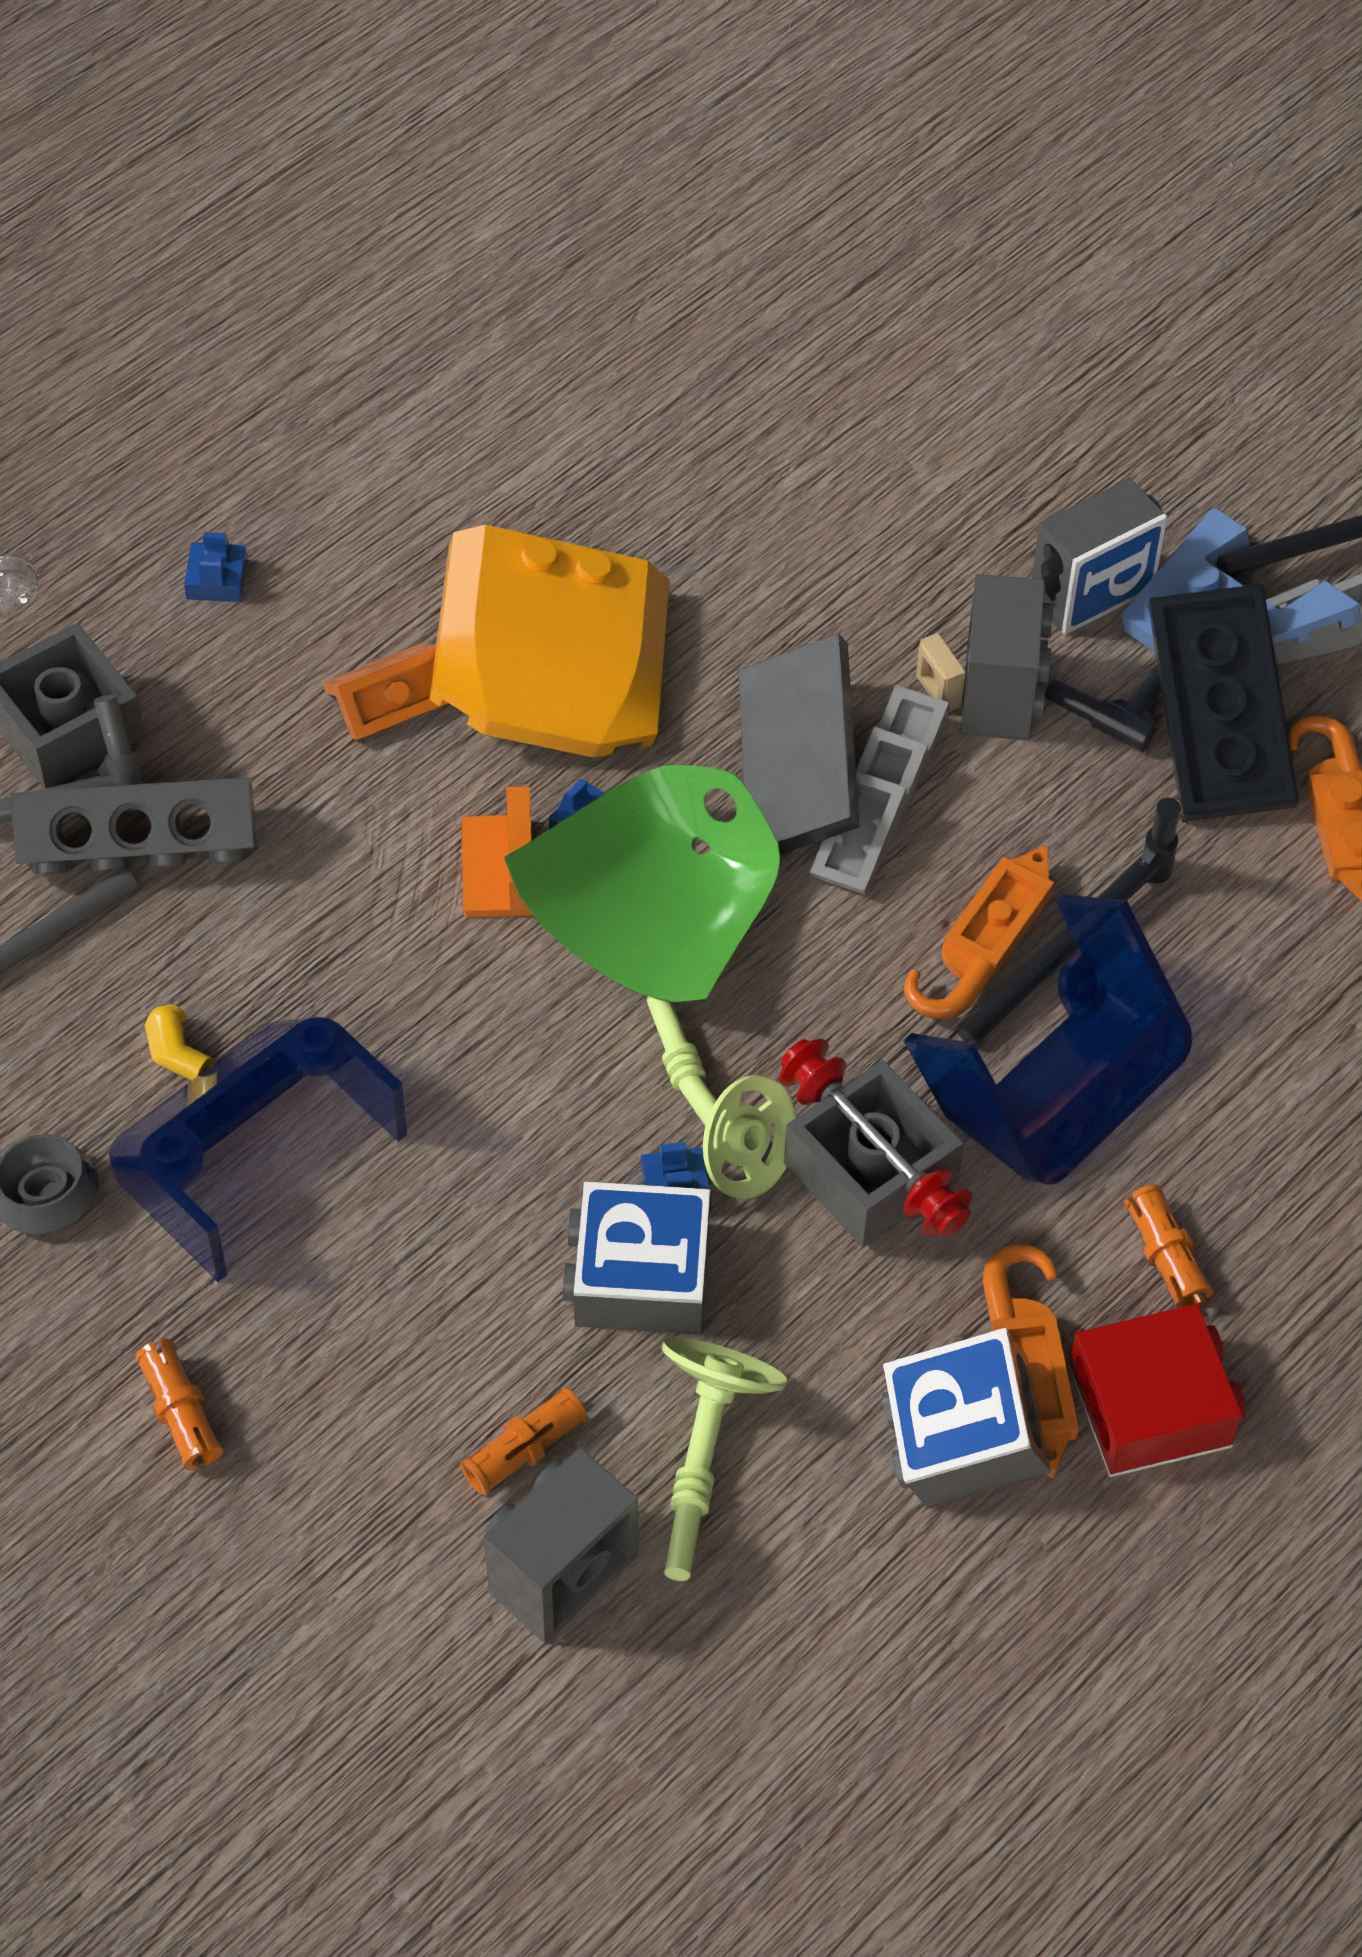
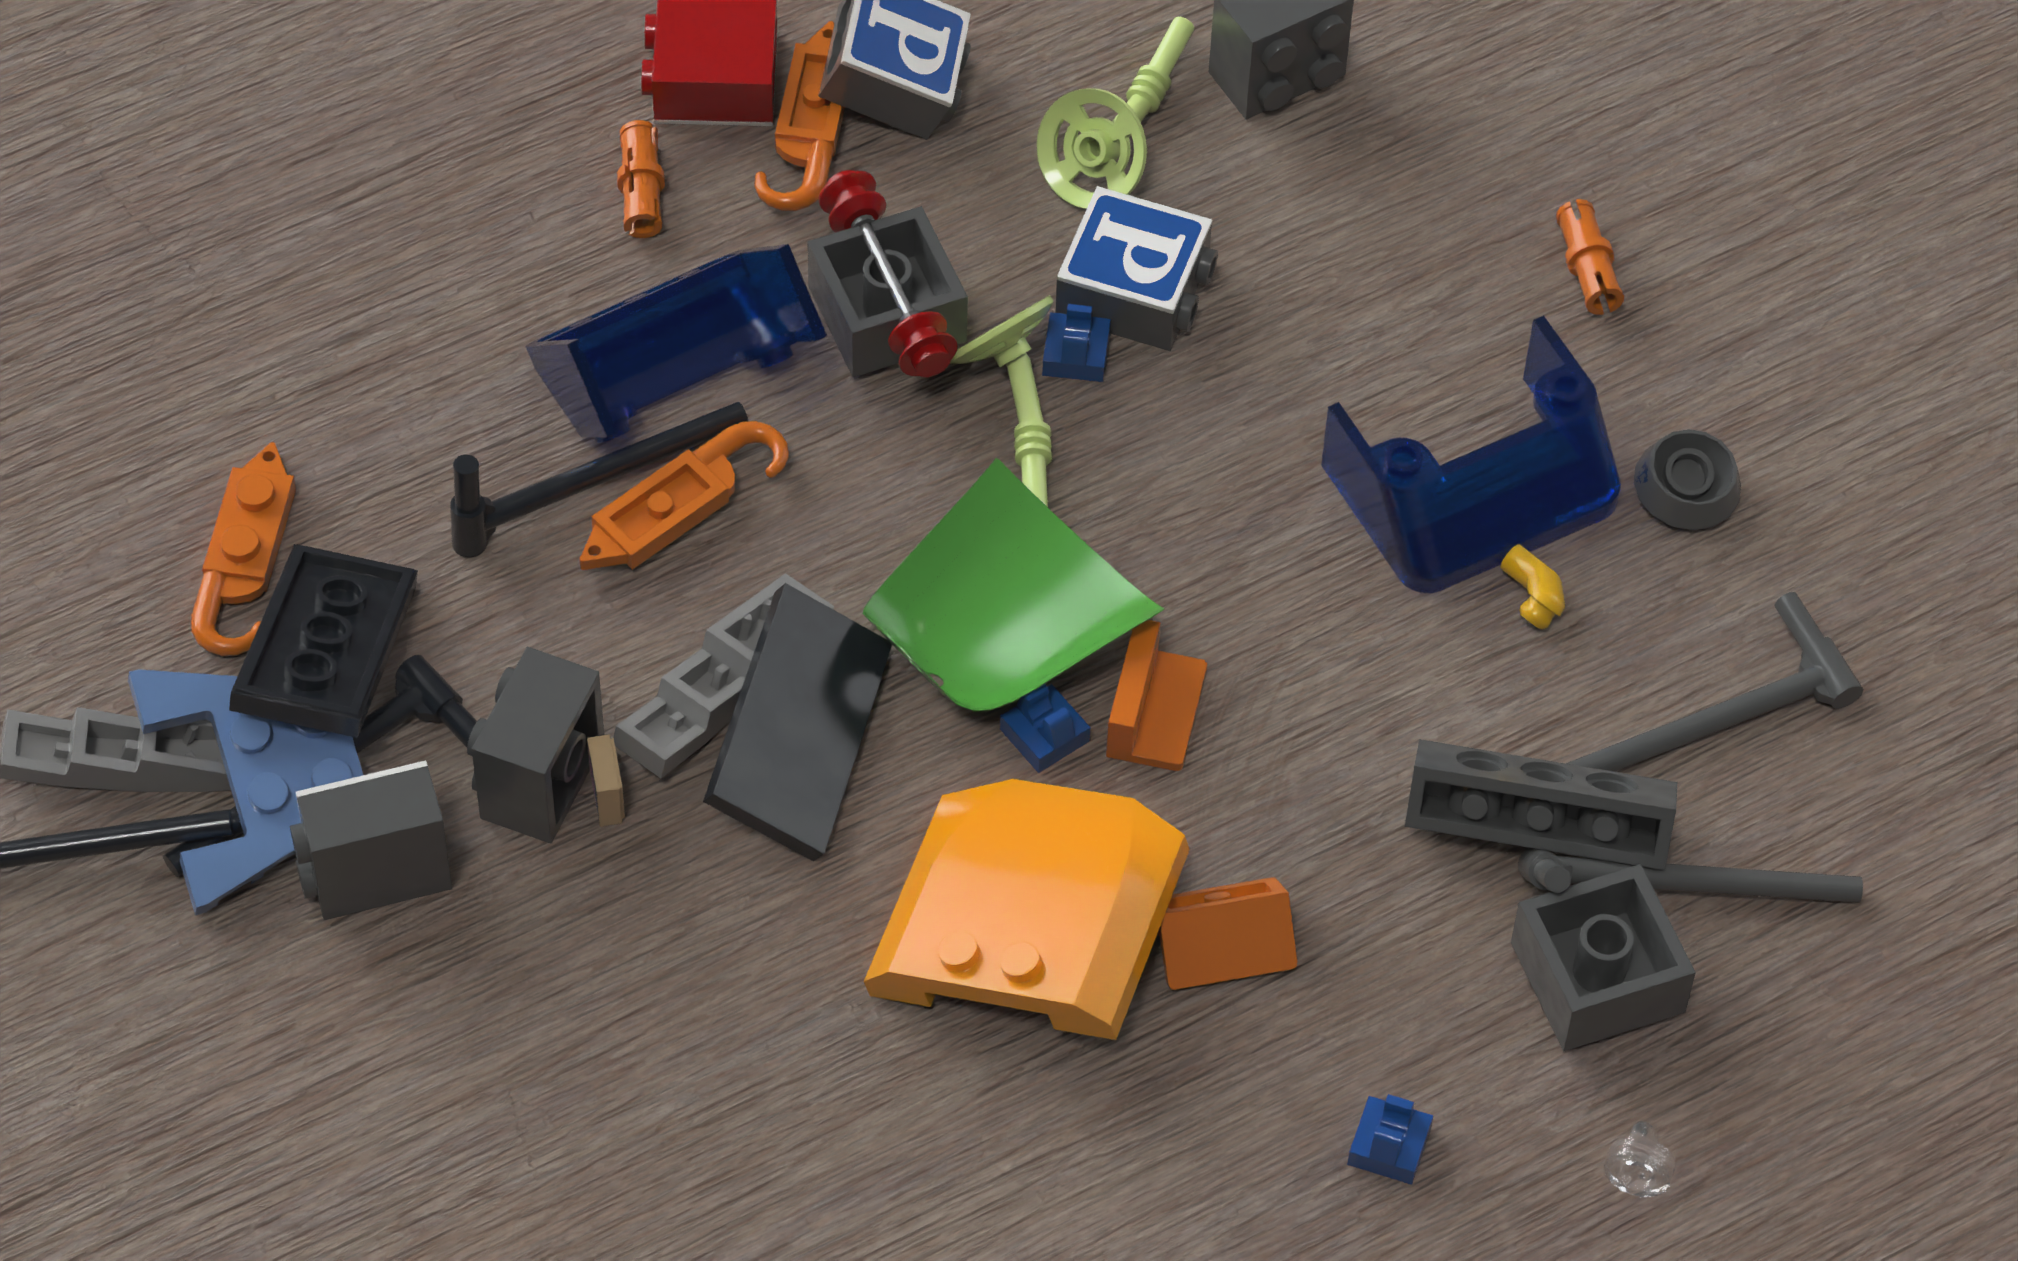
camera: 165 degrees left, 0 degrees up
(523, 1441) = (1284, 160): orange pin -> none

